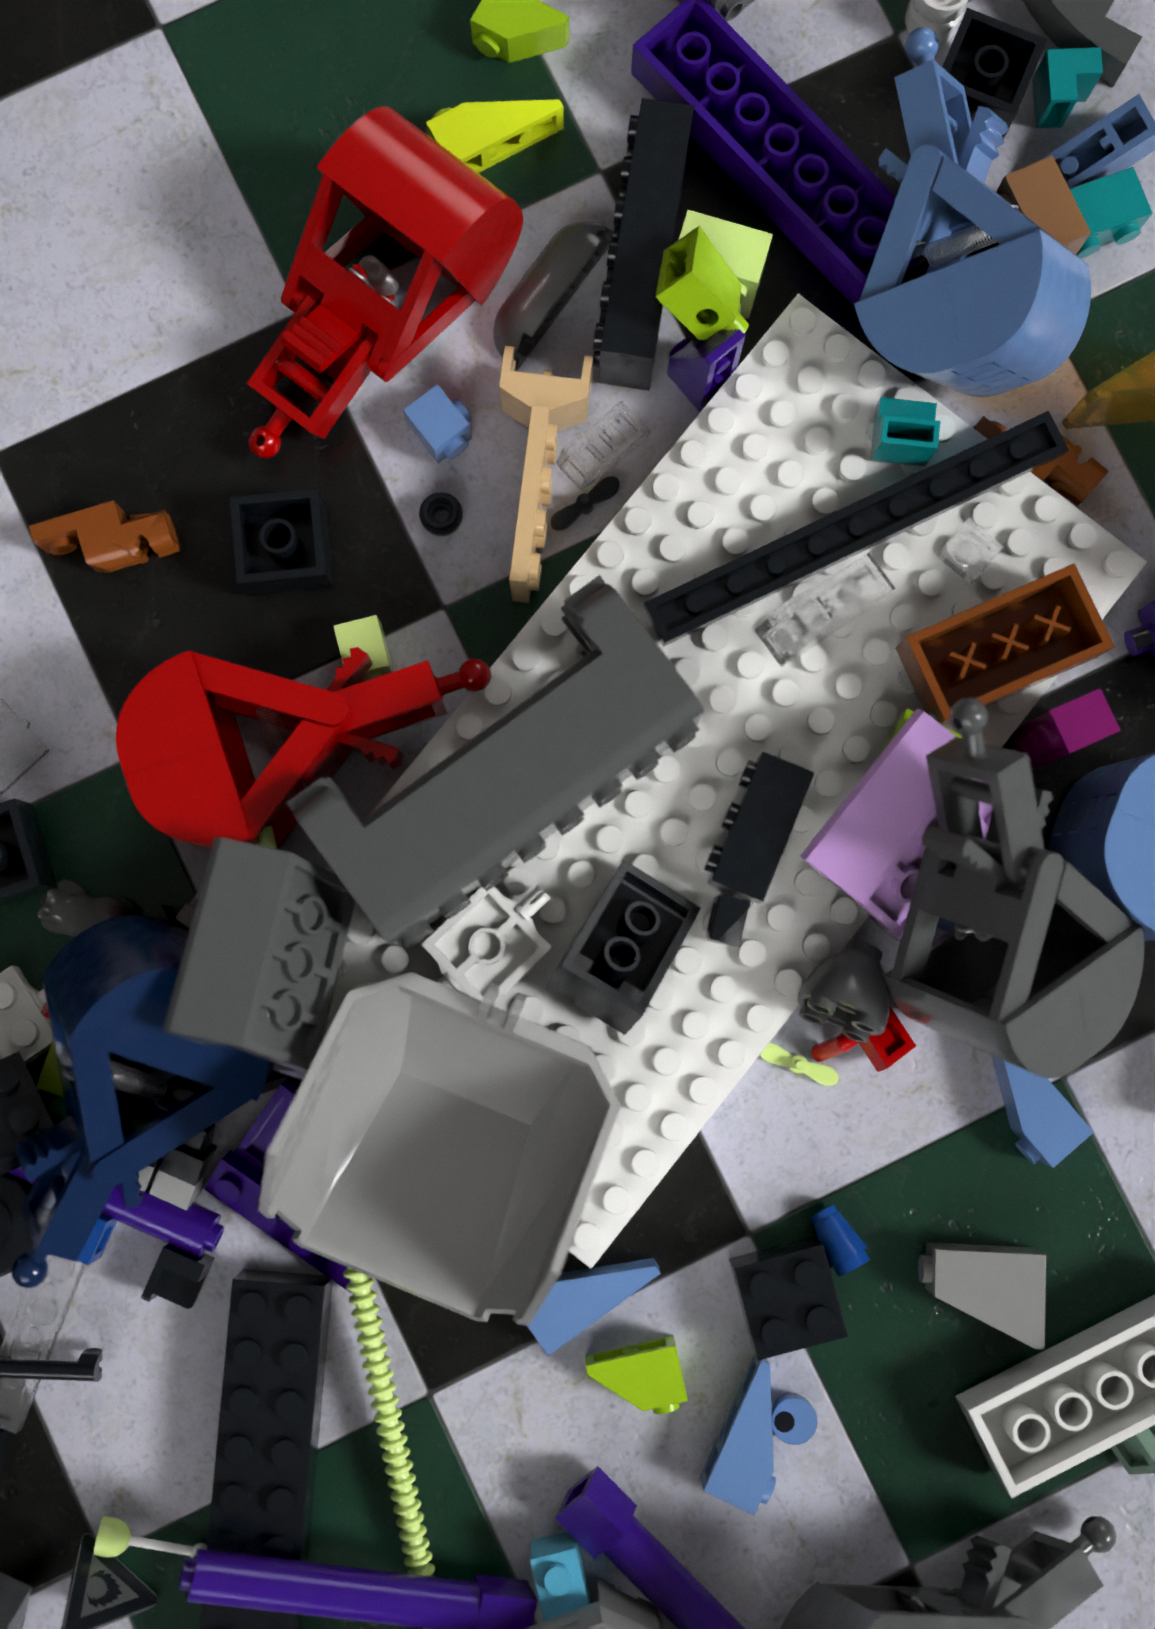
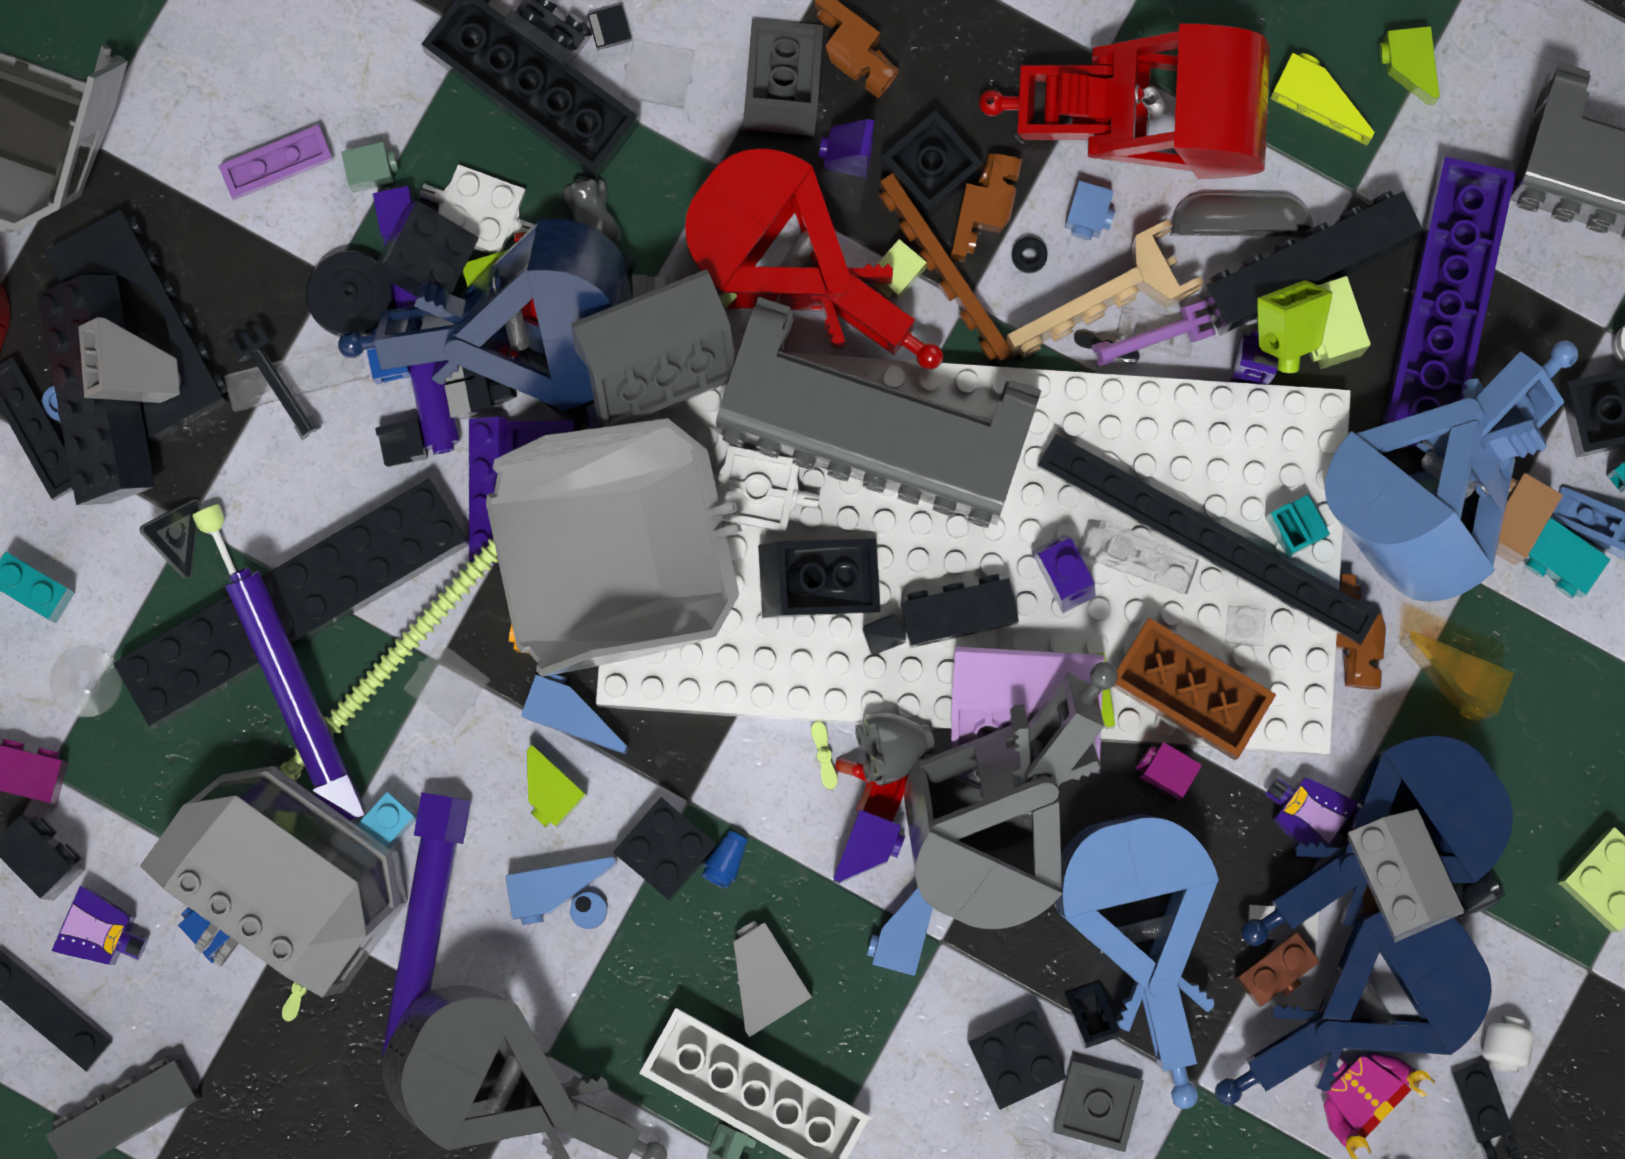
camera: 60 degrees right, 0 degrees up
(90, 629) = (783, 77): none -> dark grey slope
(205, 609) = (849, 148): none -> dark purple slope
(360, 519) = (987, 205): none -> dark orange plate
(414, 605) = (952, 282): none -> dark orange plate
(458, 1402) = (446, 684): none -> clear piece
(620, 407) = (1189, 324): none -> medium lavender hinge
(791, 690) = (1065, 572): none -> dark purple torso
(932, 1090) = (868, 846): none -> dark purple slope

